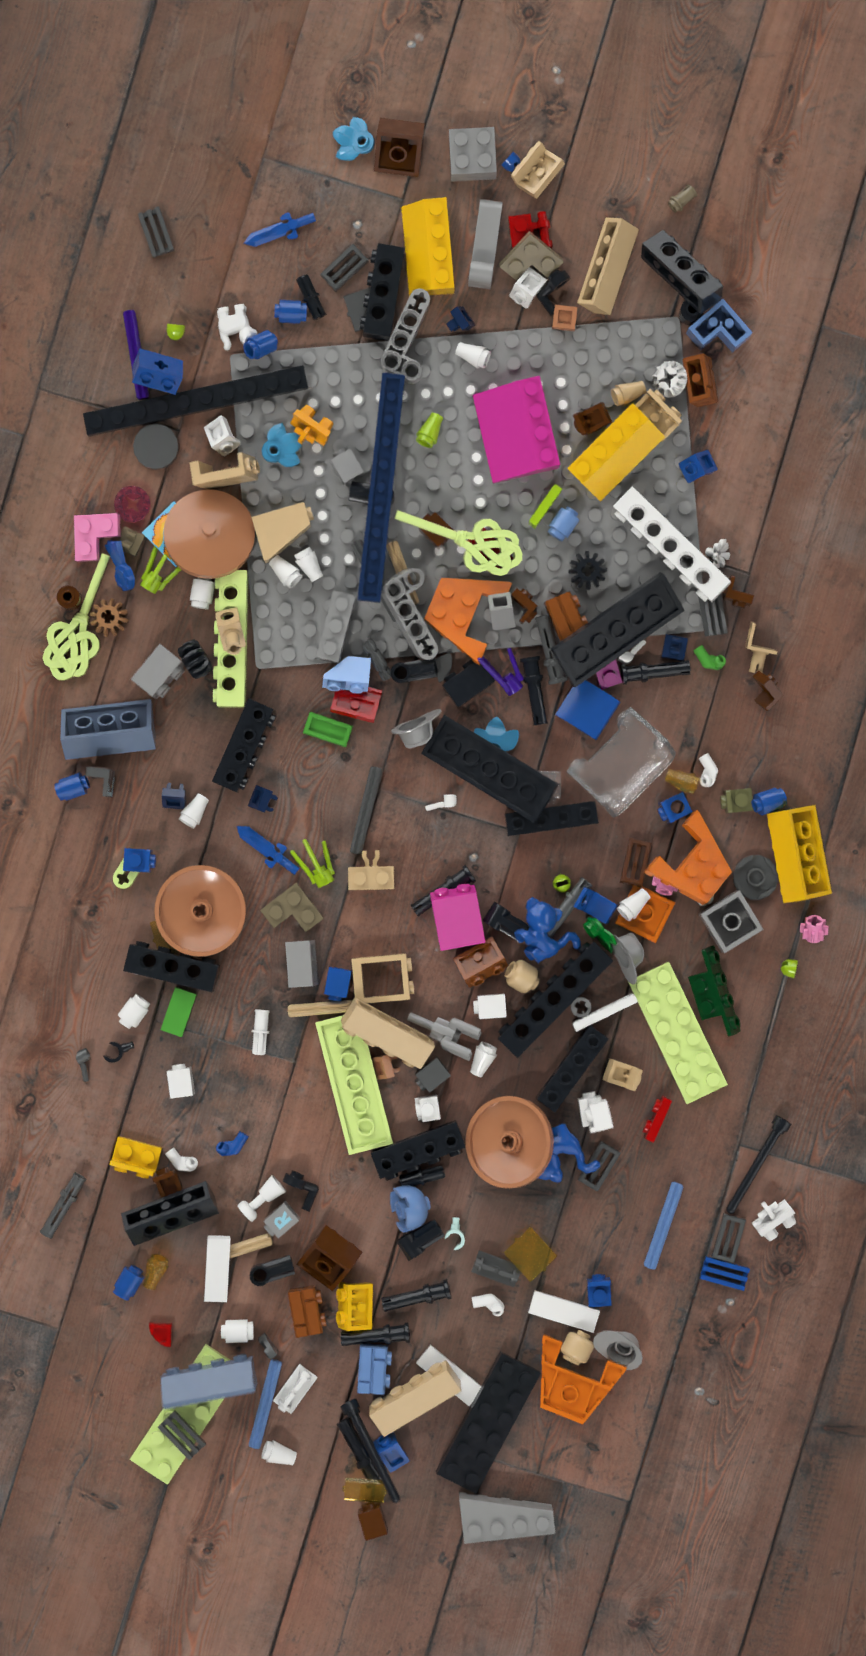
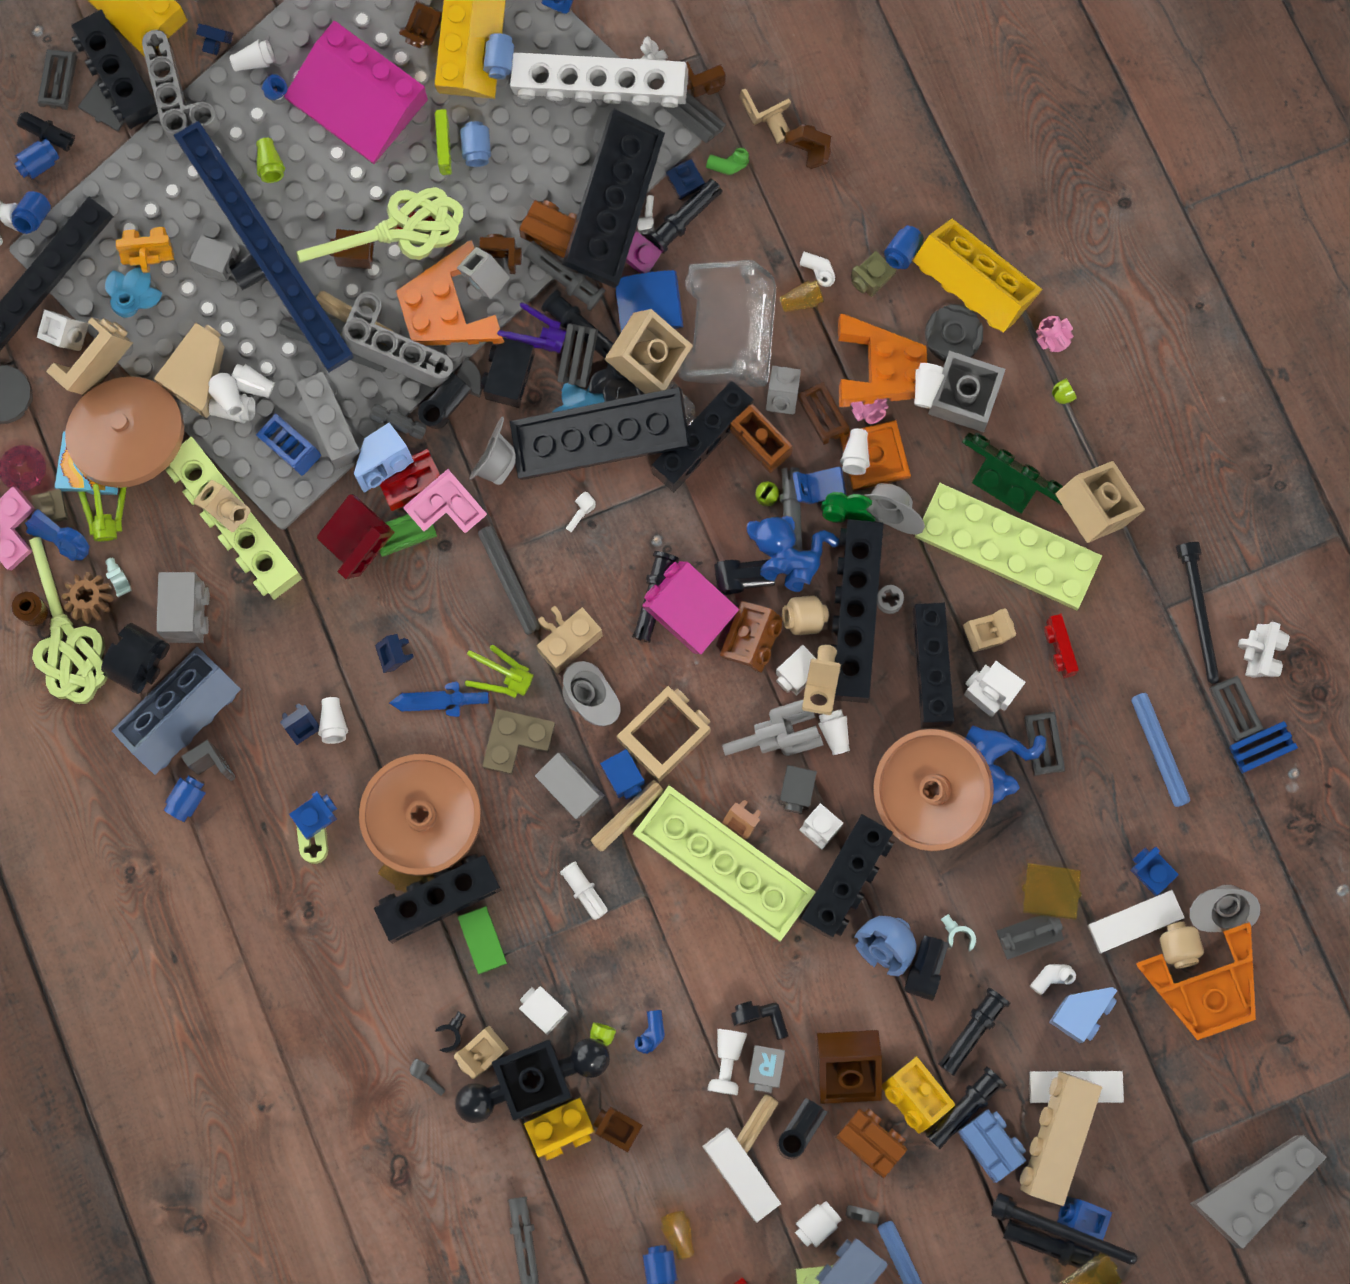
camera: 35 degrees left, 10 degrees down
(107, 680) = (134, 658): none -> black brick
(125, 1077) = (480, 1052): none -> tan bracket
(133, 1011) = (434, 977): white brick -> none
(136, 619) = (117, 577): none -> light aqua piece
(169, 1213) = (643, 1157): black brick -> none
(181, 1163) = (614, 1095): white arm -> none
(183, 1131) = (476, 1102): none -> black brick
(195, 659) = (210, 565): black gear -> none
(202, 593) = (164, 497): white brick -> none
(204, 1122) = (602, 1032): none -> lime hinge
(243, 746) = (330, 614): black brick -> none
(286, 563) = (226, 393): none -> white cone
(294, 1389) = (928, 1237): white hinge -> none
(295, 710) = (354, 536): none -> dark red bracket
(299, 640) = (302, 457): none -> blue slope
(356, 921) = (590, 694): none -> light grey piece
(368, 731) = (444, 496): none -> bright pink plate
(387, 1033) = (715, 781): tan brick -> none
(422, 1176) = (875, 900): black axle -> none
(476, 385) = (274, 82): none -> blue hinge
(488, 1336) = (1080, 1012): none -> light blue slope
(488, 1422) = (1157, 1103): black plate -> none
(498, 1026) = (822, 680): none -> tan bracket
(503, 717) = (567, 349): none -> dark grey tile
(525, 747) = (612, 385): none -> black plate
(560, 742) = (648, 351): none -> tan brick
(581, 565) = (537, 159): black gear -> none
(584, 849) = (761, 438): none -> dark orange brick
(604, 1012) = (917, 583): white tile -> none
(621, 480) = (498, 56): none -> medium blue brick
(624, 828) = (783, 390): none -> light grey bracket
(665, 808) = (813, 339): blue bracket -> none
(708, 901) = (927, 382): none -> white cone
(751, 1054) = (1100, 501): none -> tan brick

